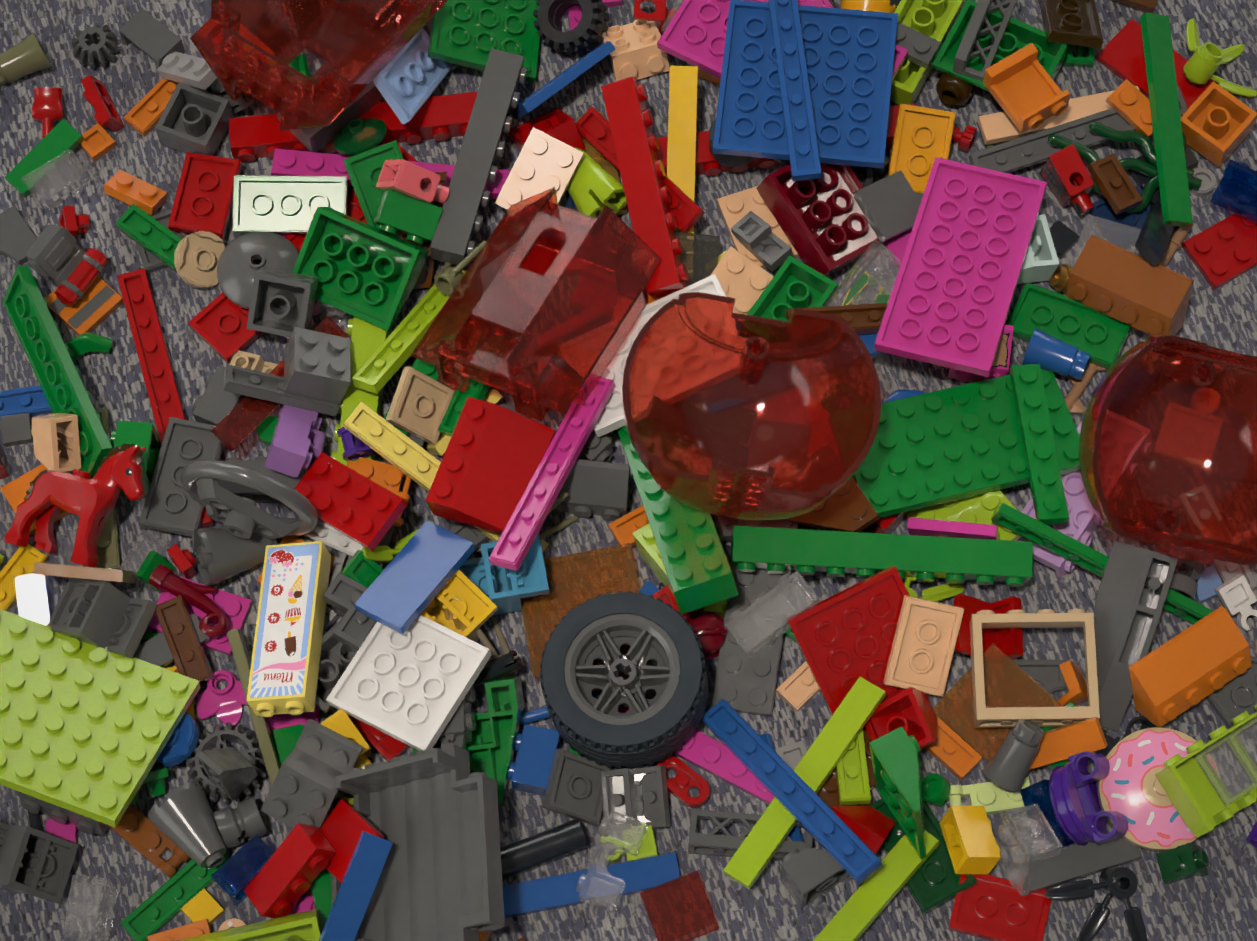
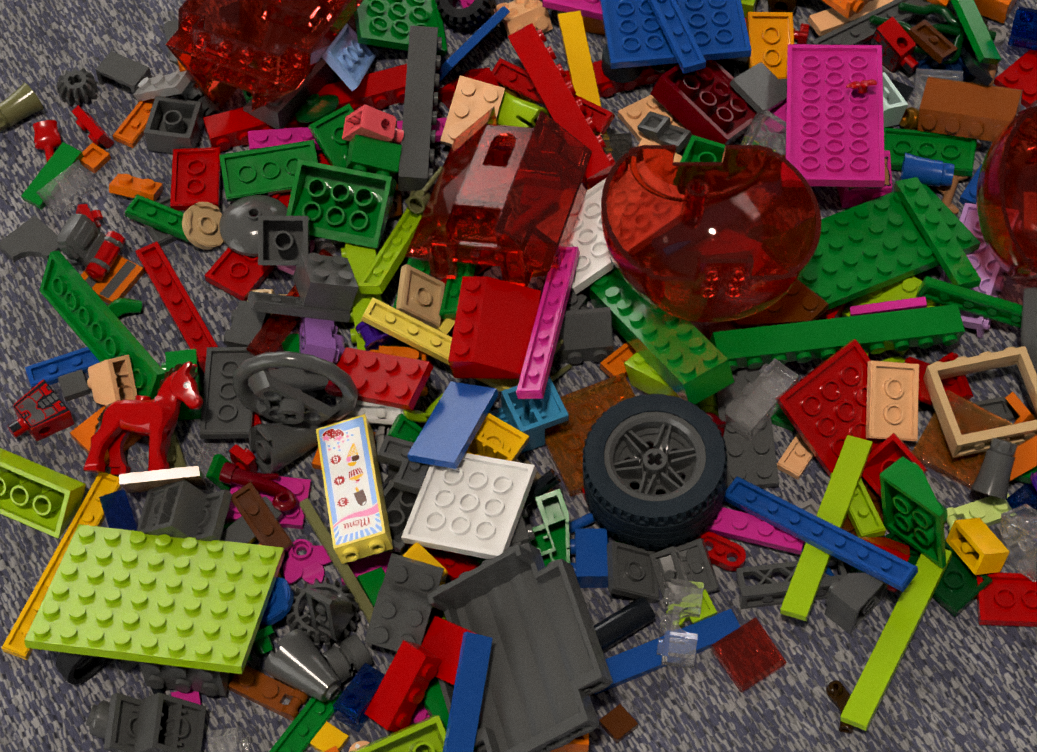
camera: 15 degrees left, 10 degrees down
(953, 751) = (944, 485): orange plate -> none
(1002, 237) = (862, 86): none -> red plant

